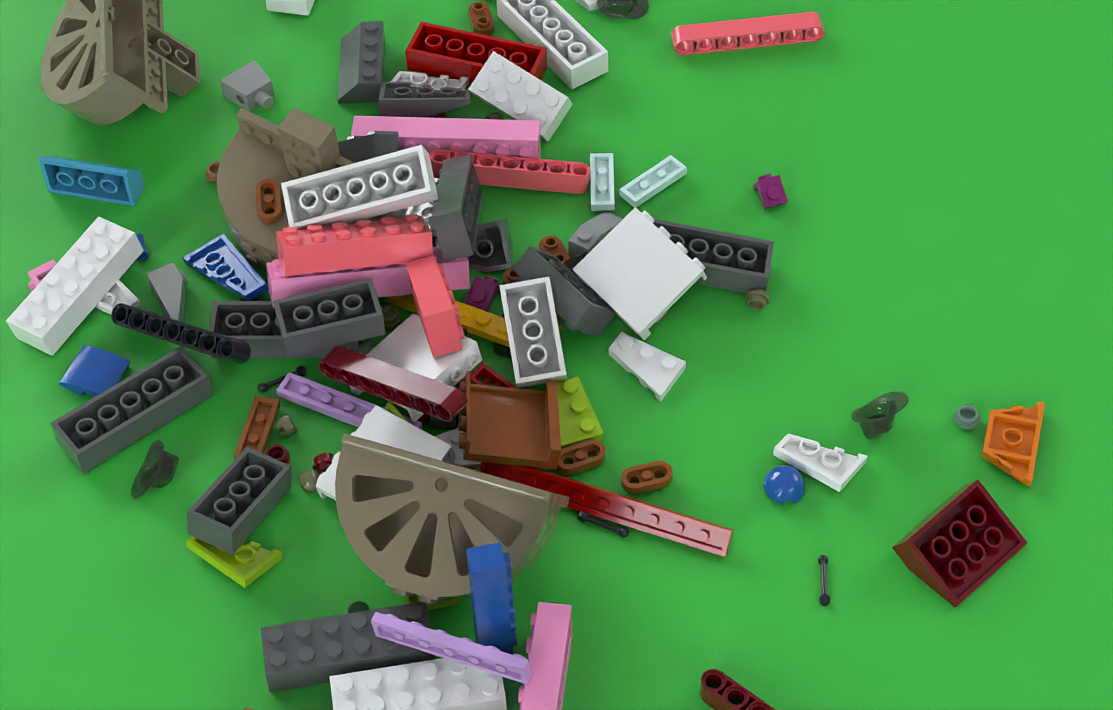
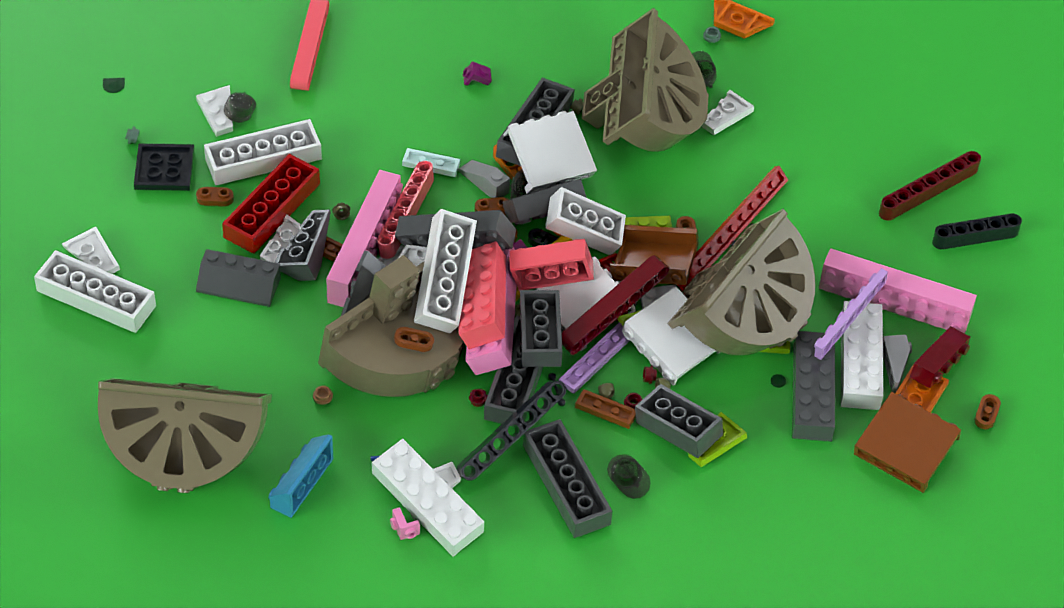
camera: 80 degrees left, 0 degrees up
(94, 371) = (514, 503): blue slope -> none
(169, 290) = (451, 442): light grey slope -> none
(227, 267) = (433, 402): wing -> none
(249, 87) = (234, 356): light grey torso -> none
(492, 596) = (834, 277): blue brick -> none
(520, 94) = (336, 180): white brick -> none
(645, 477) = (714, 202): dark orange plate -> none
(649, 364) = (613, 178): white wing -> none
(653, 181) = (442, 134): light aqua plate -> none
(783, 354) = (651, 88): none -> dark tan piece
(784, 484) = (739, 135): blue hair -> none
(824, 599) = (831, 142): black hinge -> none
(960, 543) = (809, 66): dark red slope -> none

